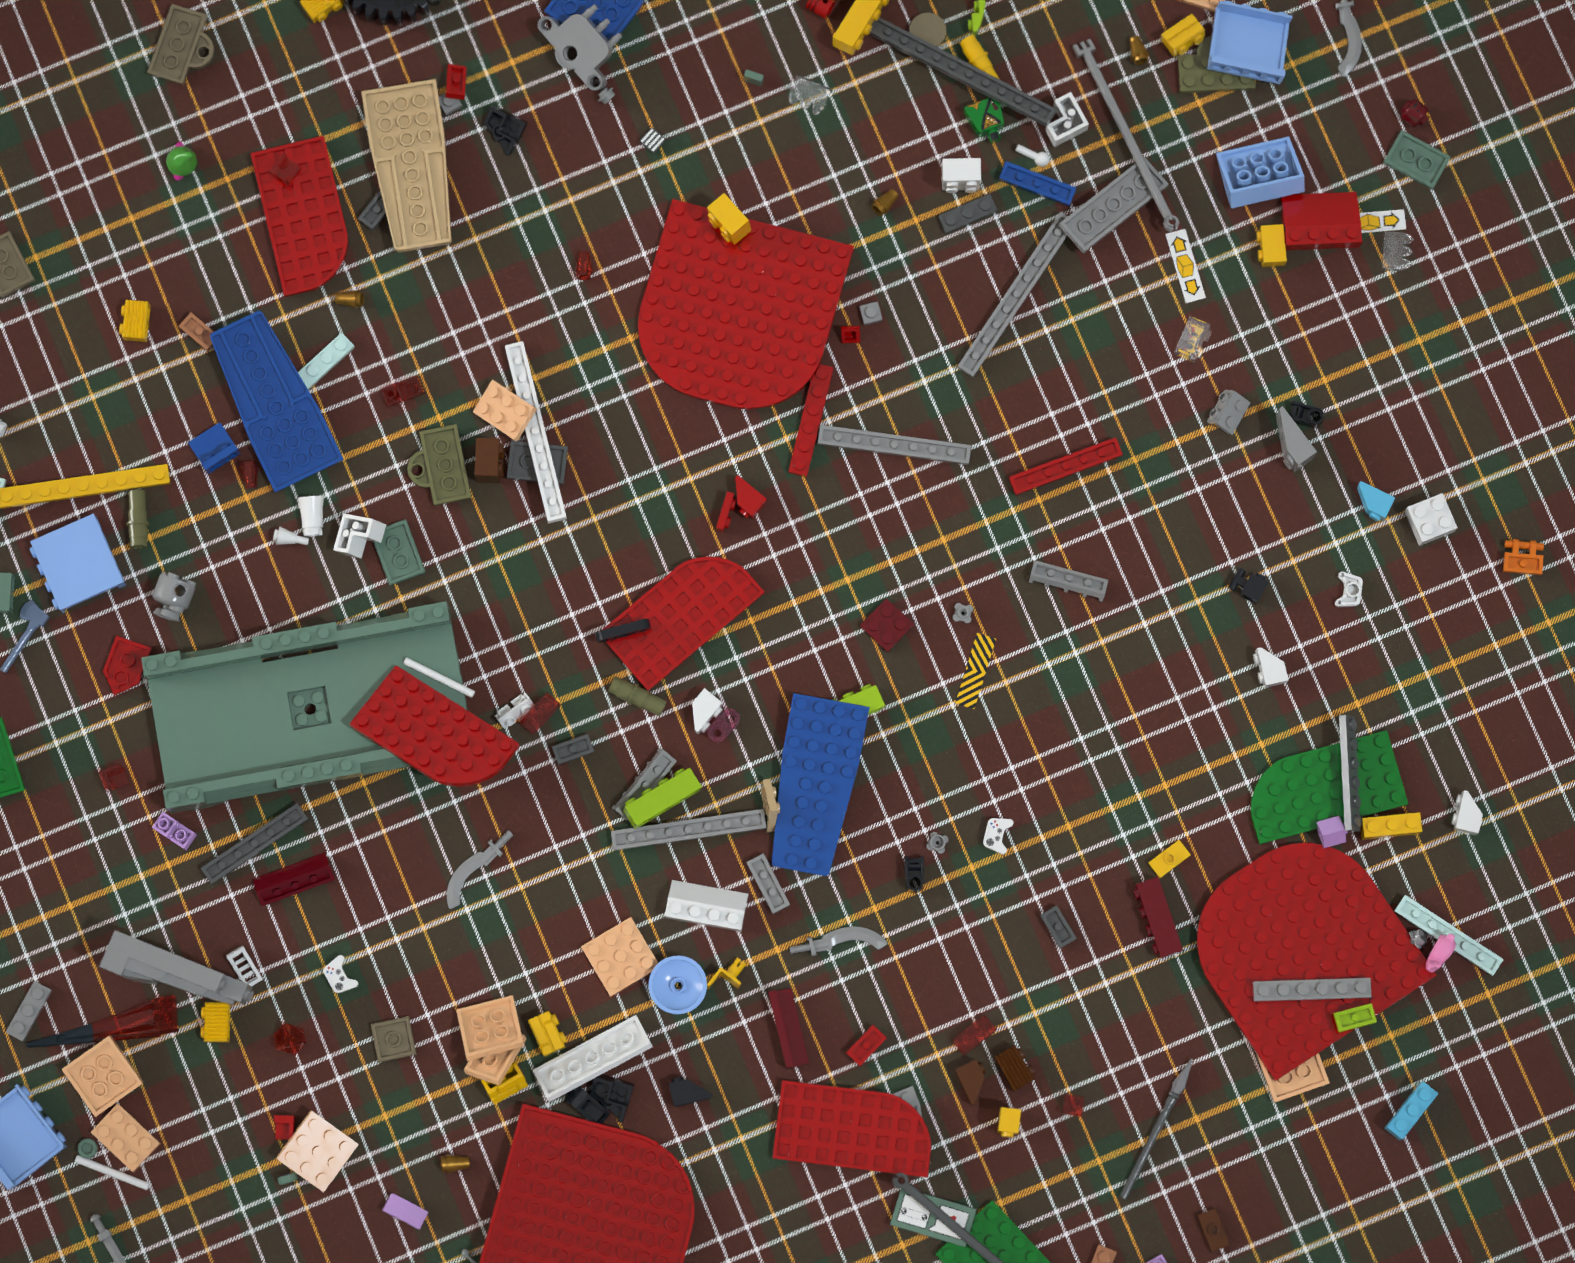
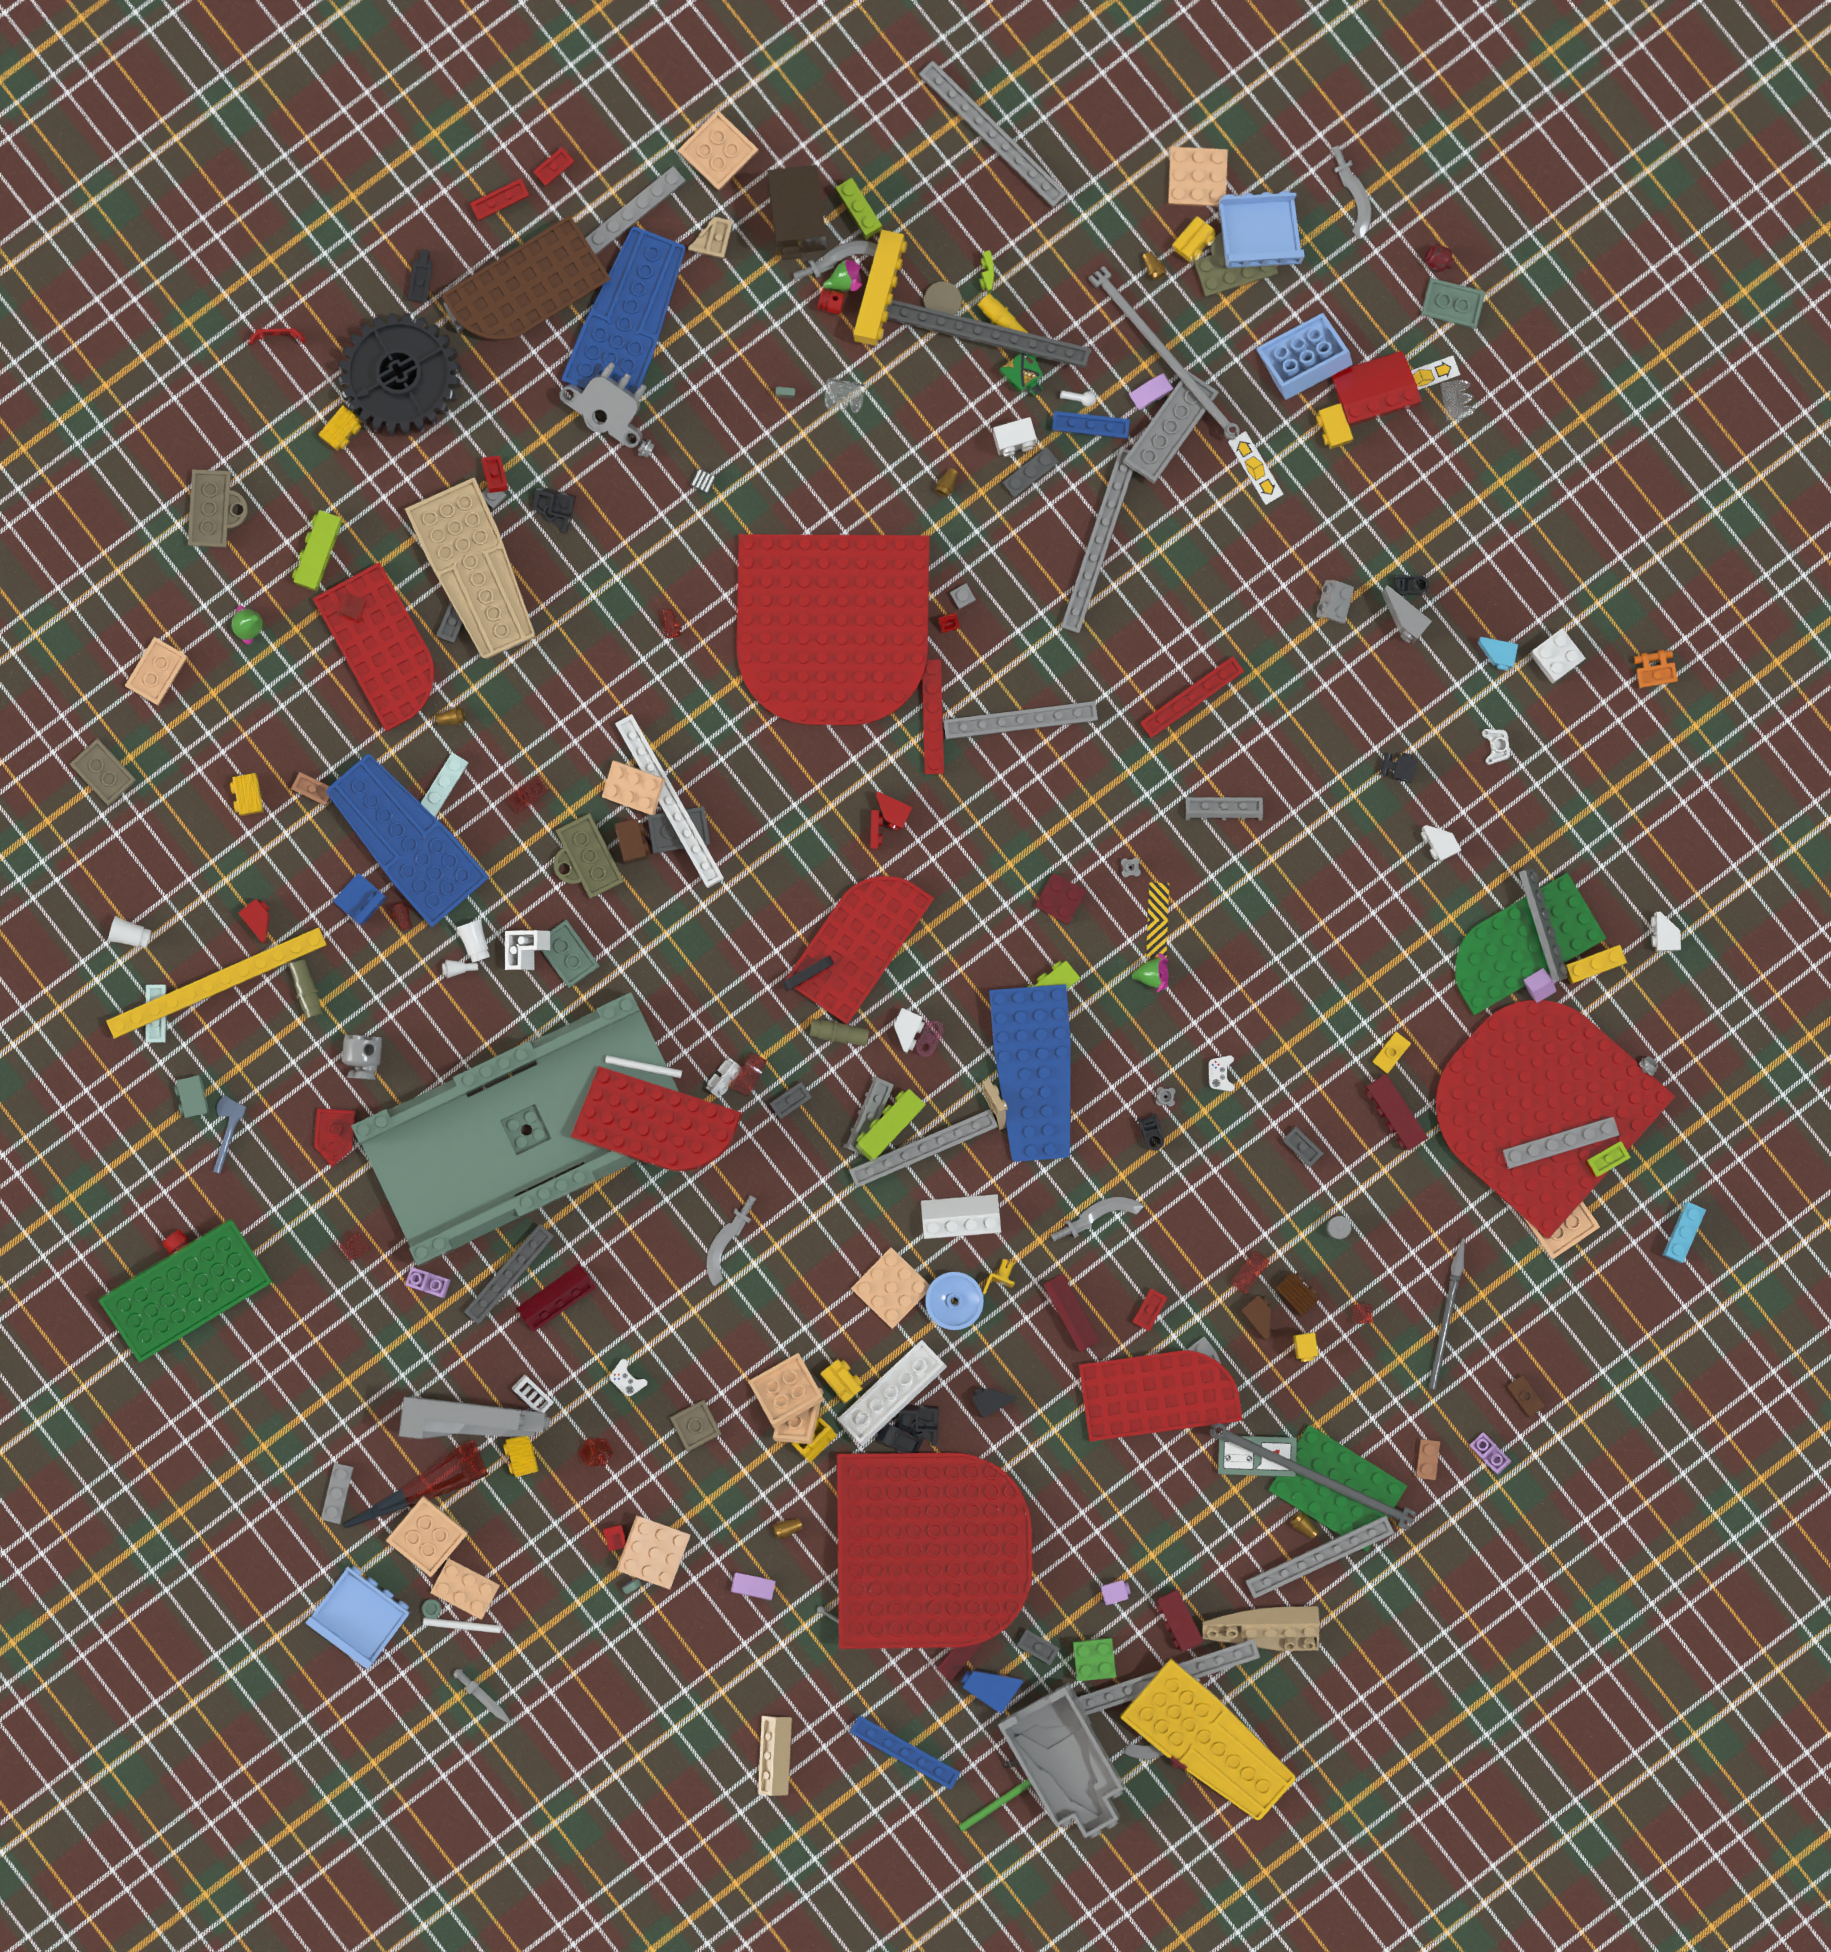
camera: 20 degrees left, 5 degrees up
(76, 562) = (258, 1048): light blue panel -> none
(83, 182) = (156, 671): none -> light nougat plate
(111, 440) = (257, 918): none -> red slope
(268, 110) = (317, 551): none -> lime brick
(729, 219) = (801, 542): yellow brick -> none
(768, 883) = (1014, 1180): light grey plate -> none
(958, 720) = (1153, 973): none -> bright green hat
(1070, 121) = (1107, 355): white brick -> none
(1072, 1014) = (1338, 1227): none -> light grey piece
(1104, 166) = (1151, 391): none -> lavender slope
(1192, 338) = (1281, 539): clear brick -> none
(1436, 926) = (1676, 1054): light aqua plate -> none
(1441, 952) = (1674, 1073): bright pink animal -> none

